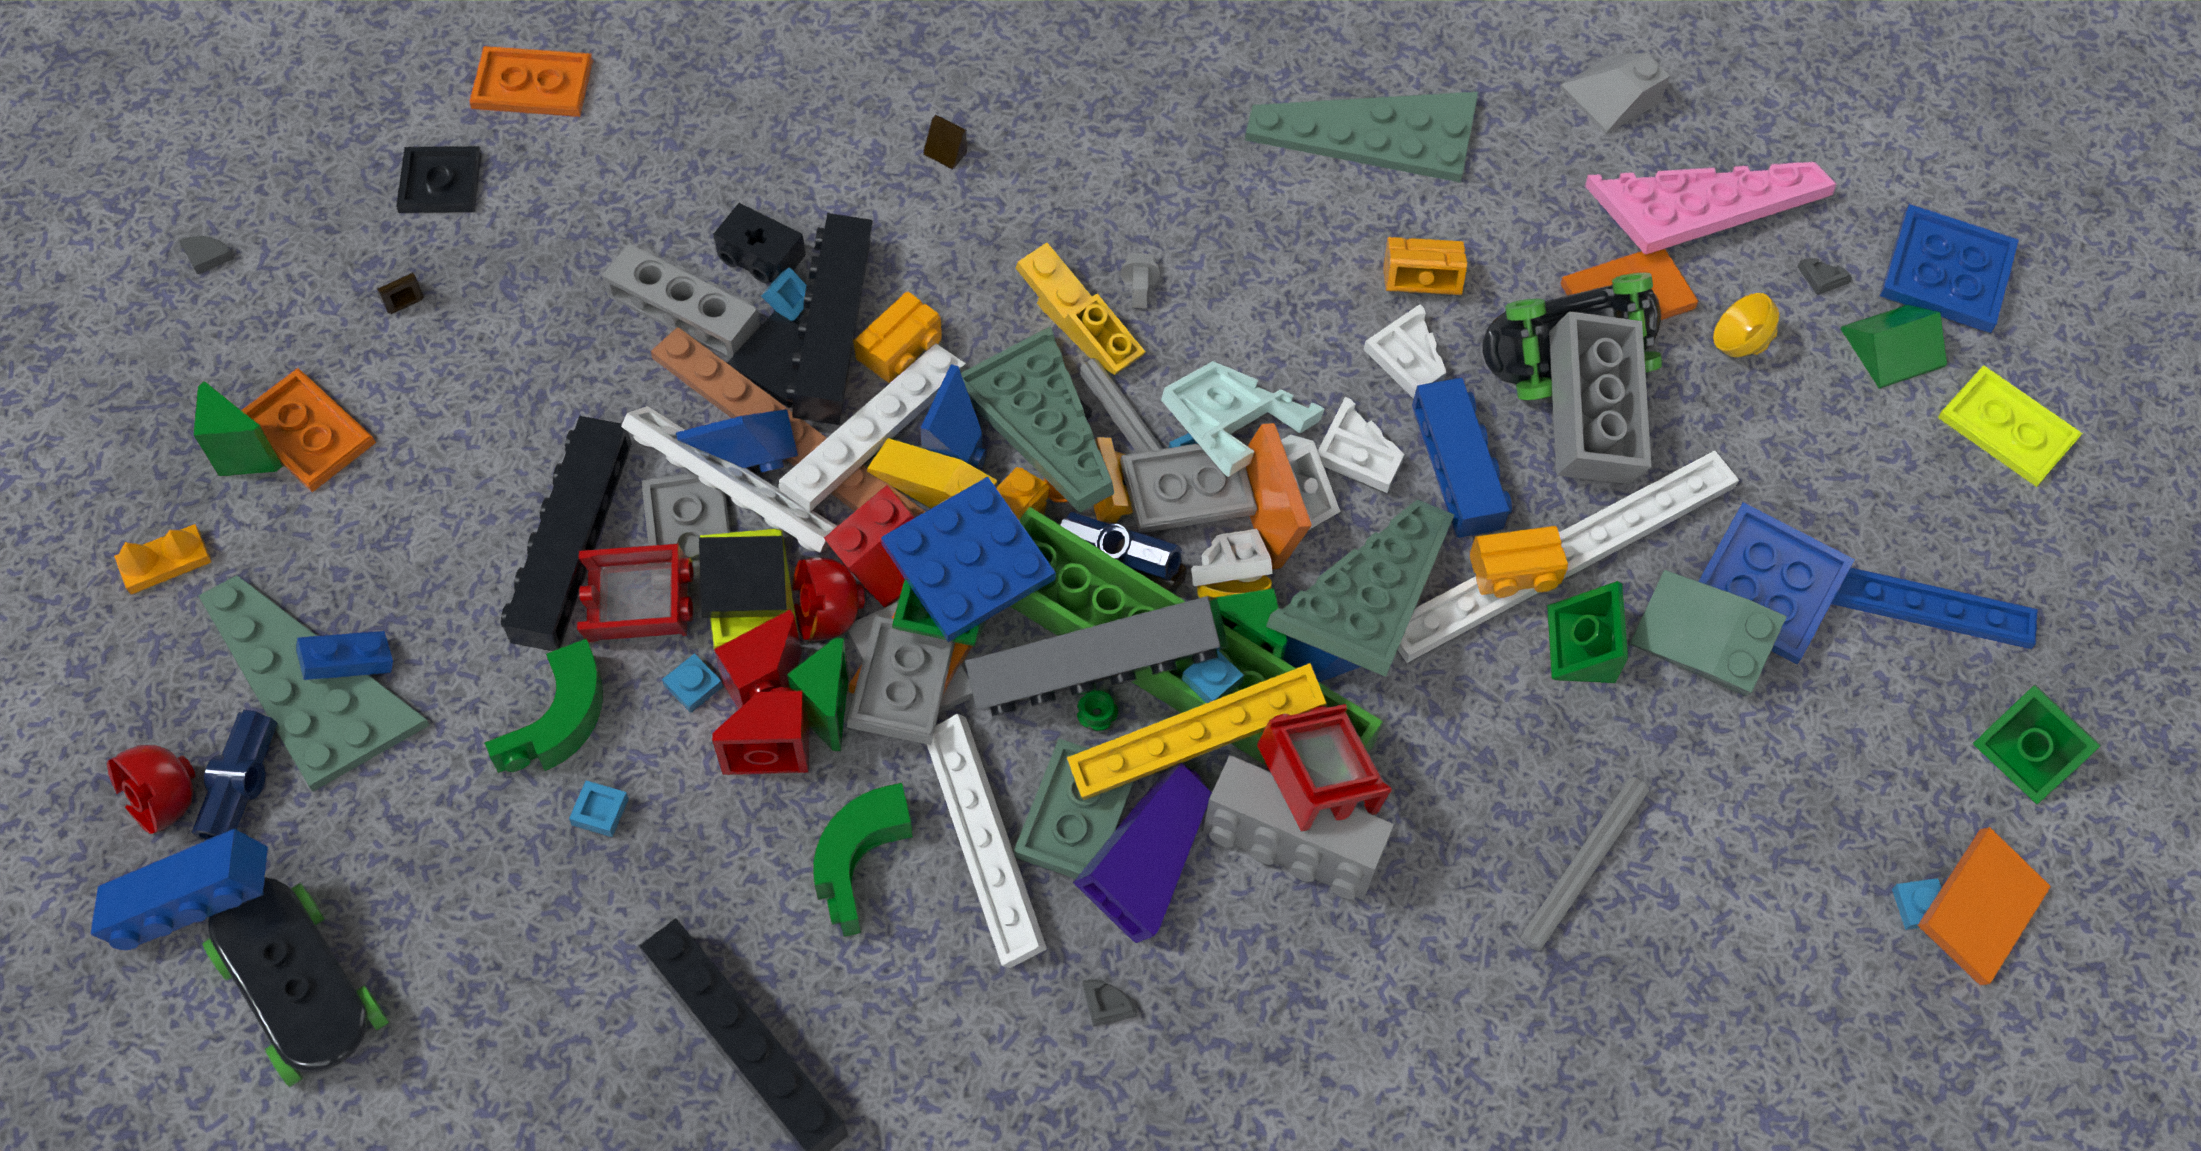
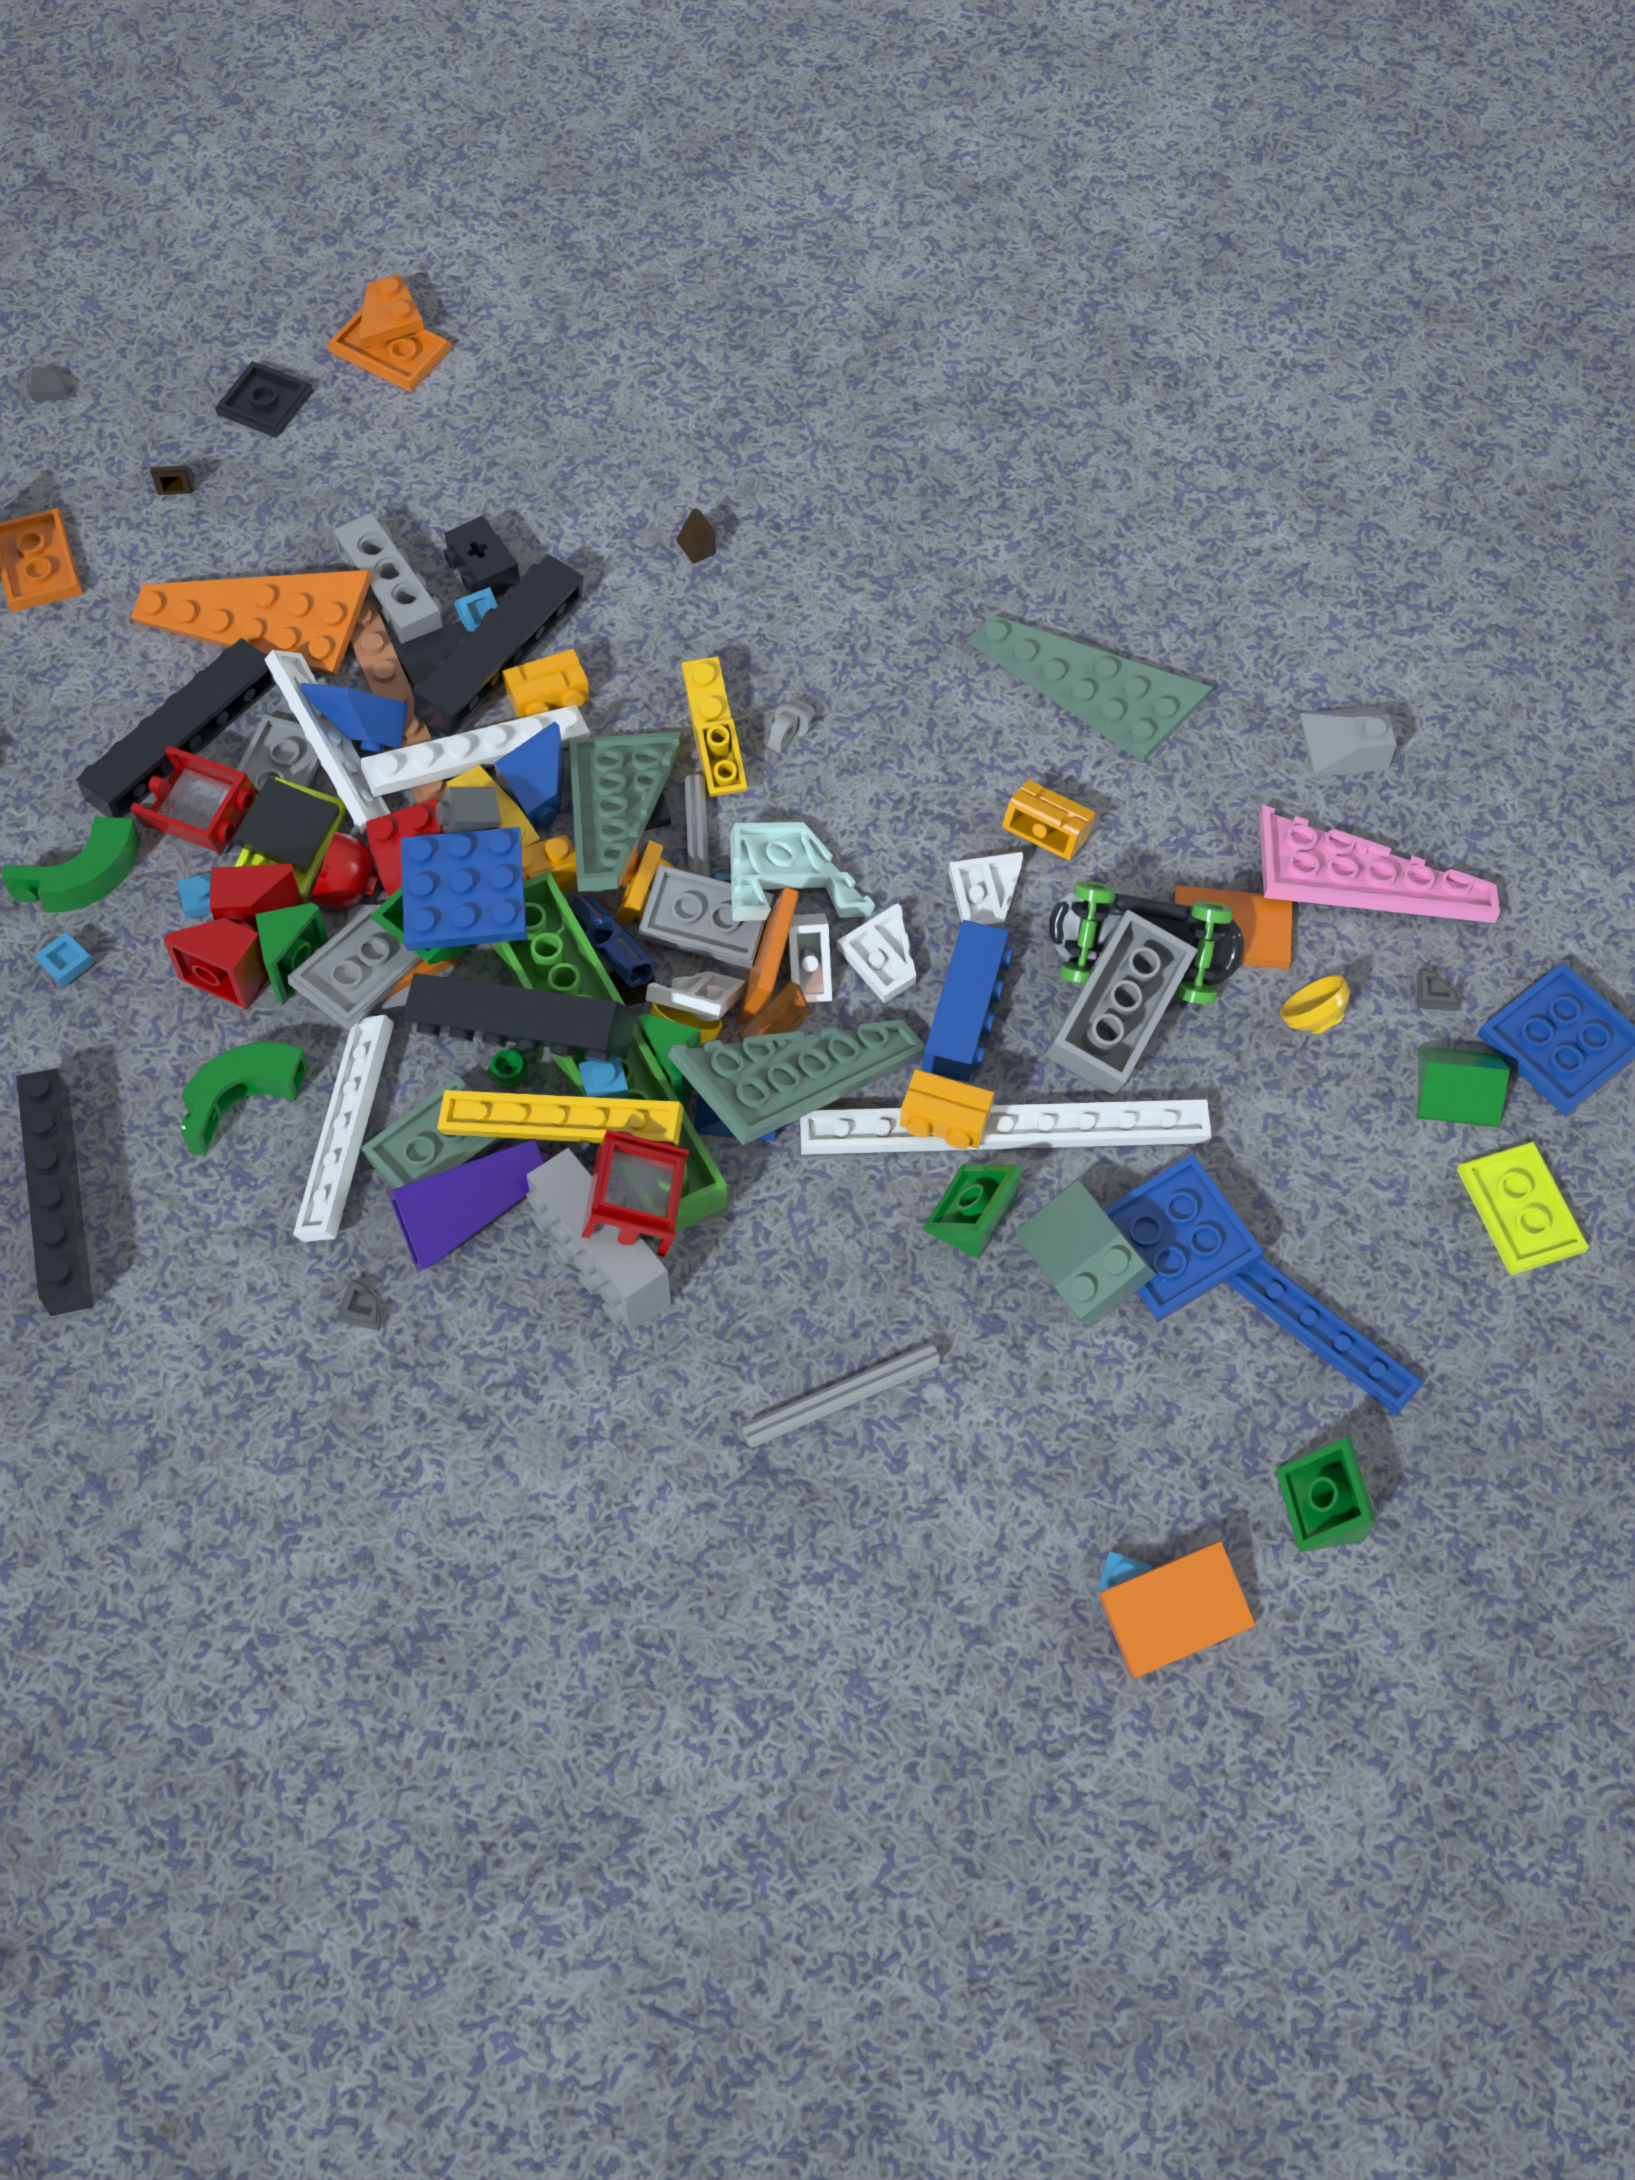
camera: 30 degrees right, 0 degrees up
(515, 47) = (388, 312): none -> orange wing
(595, 378) = (282, 613): none -> orange wing
(929, 483) = (468, 810): none -> dark grey brick
(1311, 552) = (781, 1014): none -> clear orange tile

